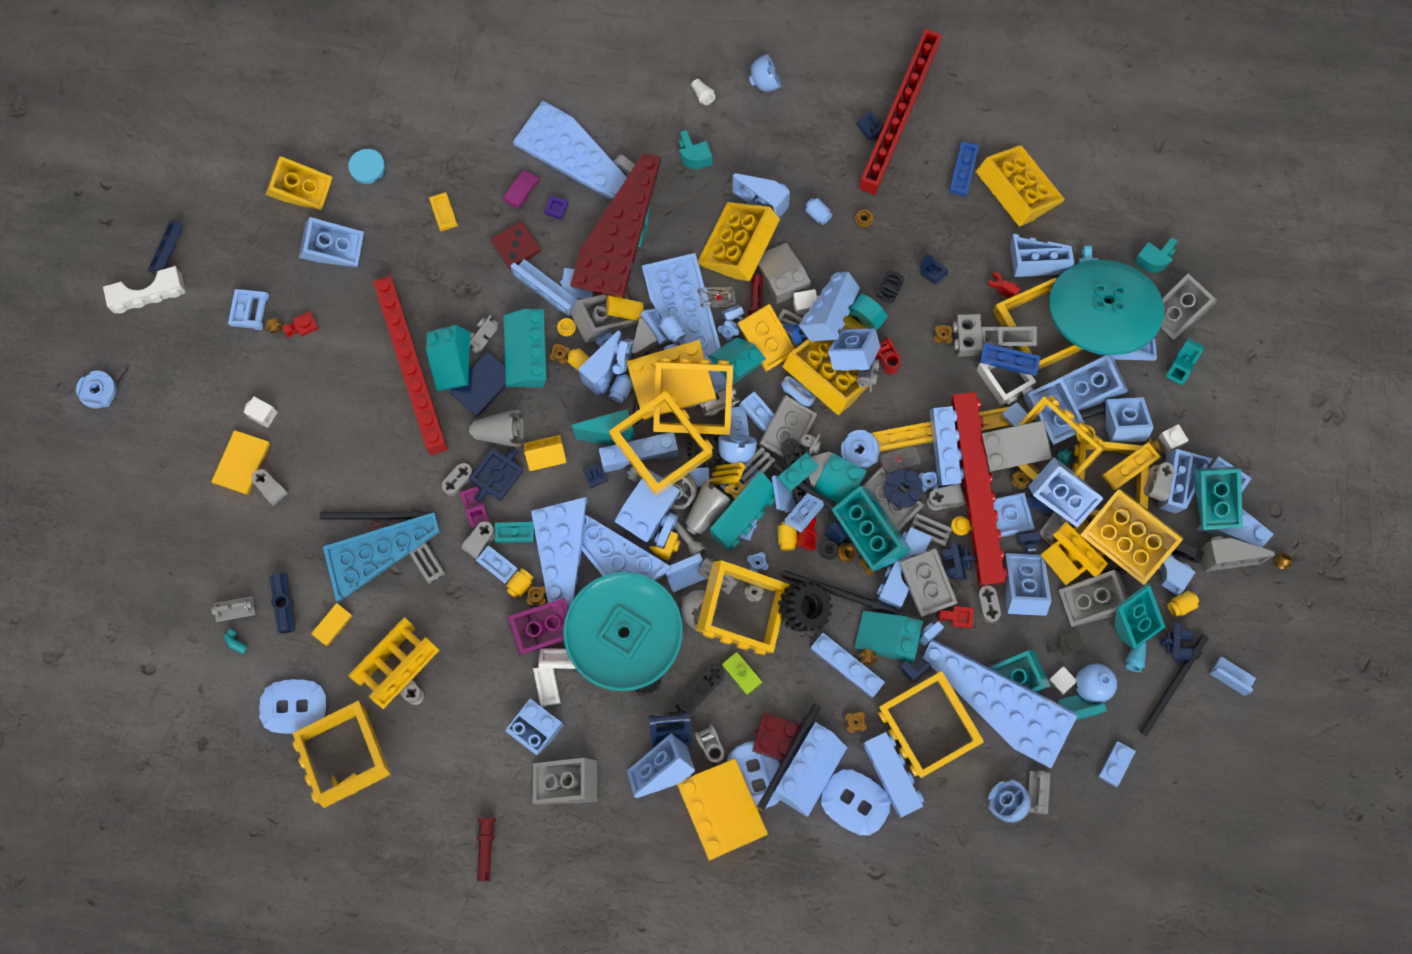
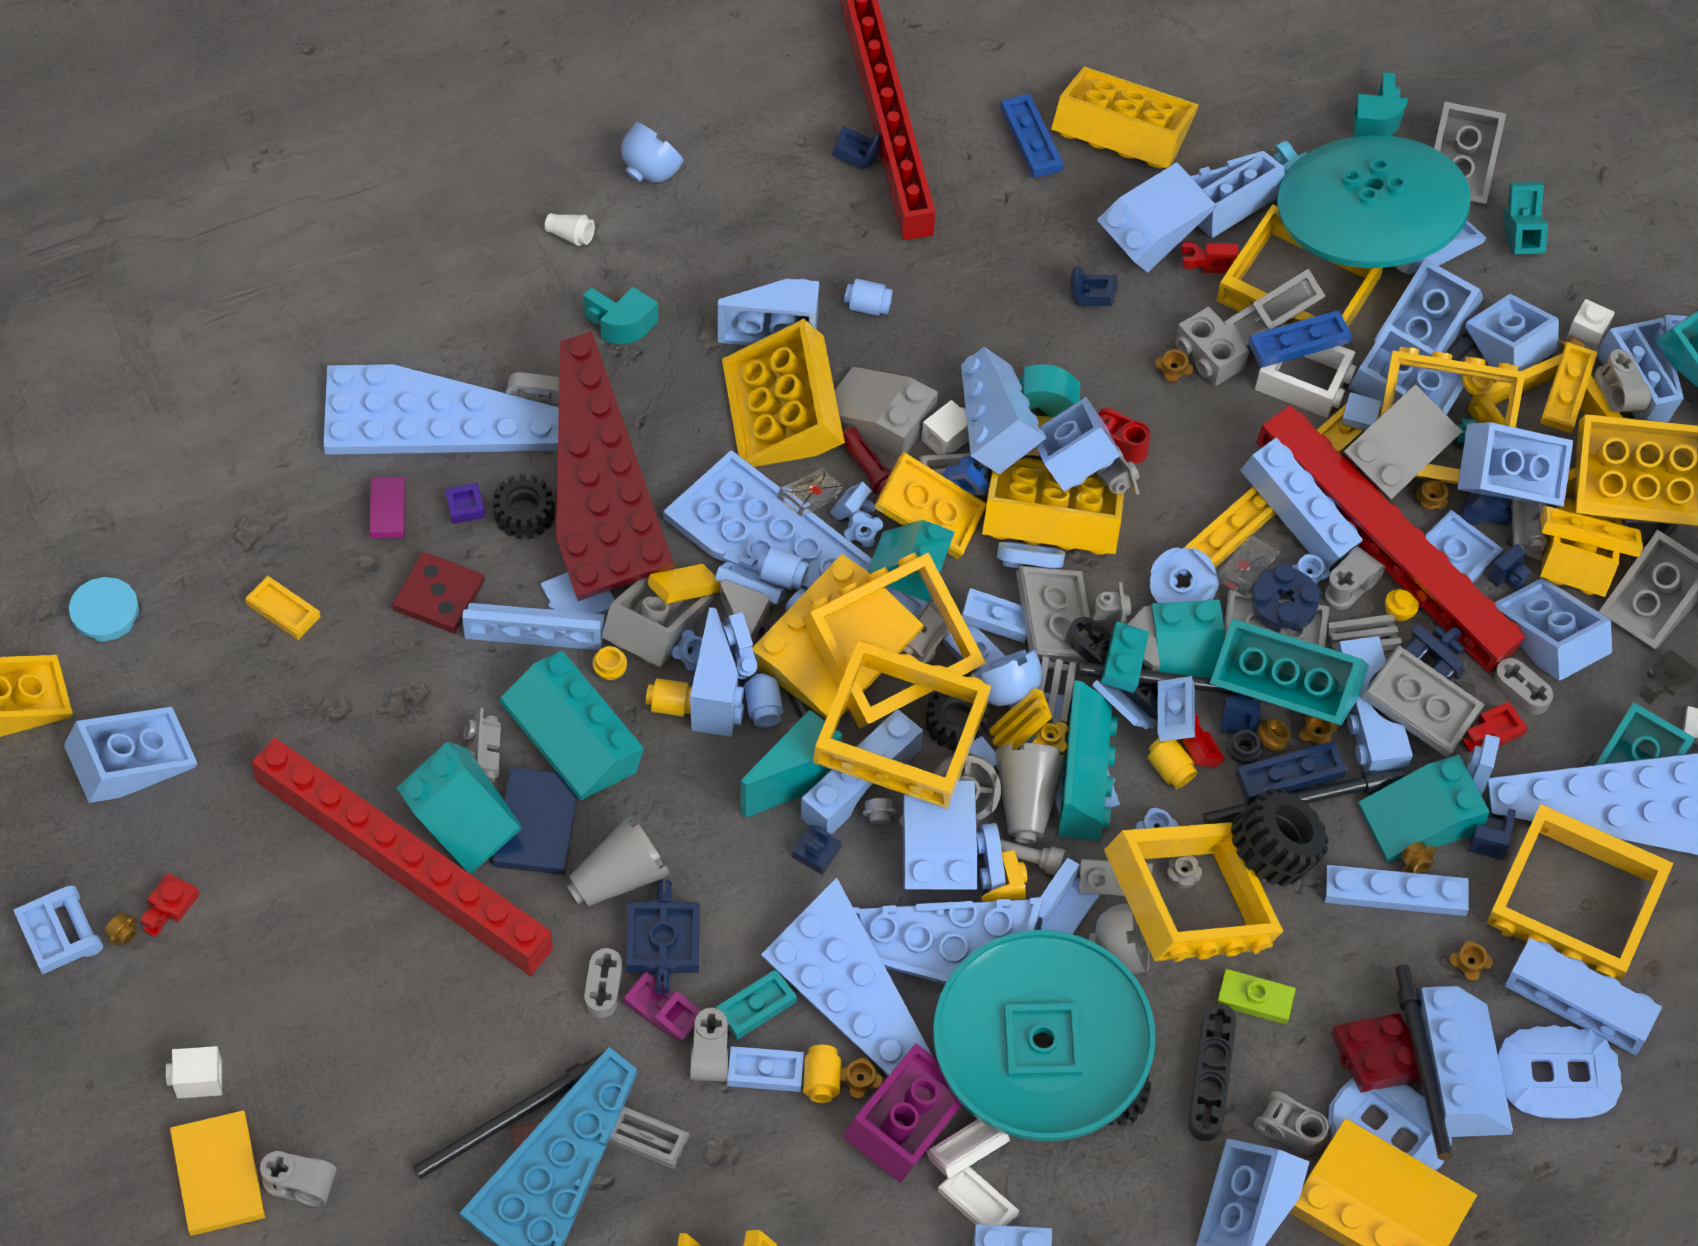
camera: 40 degrees left, 15 degrees down
(544, 452) = (715, 861): yellow panel -> none
(557, 348) = (628, 698): pearl gold plate -> none
(578, 215) = (523, 490): none -> black tyre
(682, 732) = (1207, 1156): dark blue plate -> none
(840, 576) = (1291, 770): none -> dark blue plate
(864, 214) = (941, 267): pearl gold plate -> none
(890, 286) = (1055, 339): black gear -> none
(989, 250) = (1157, 215): none -> light blue slope

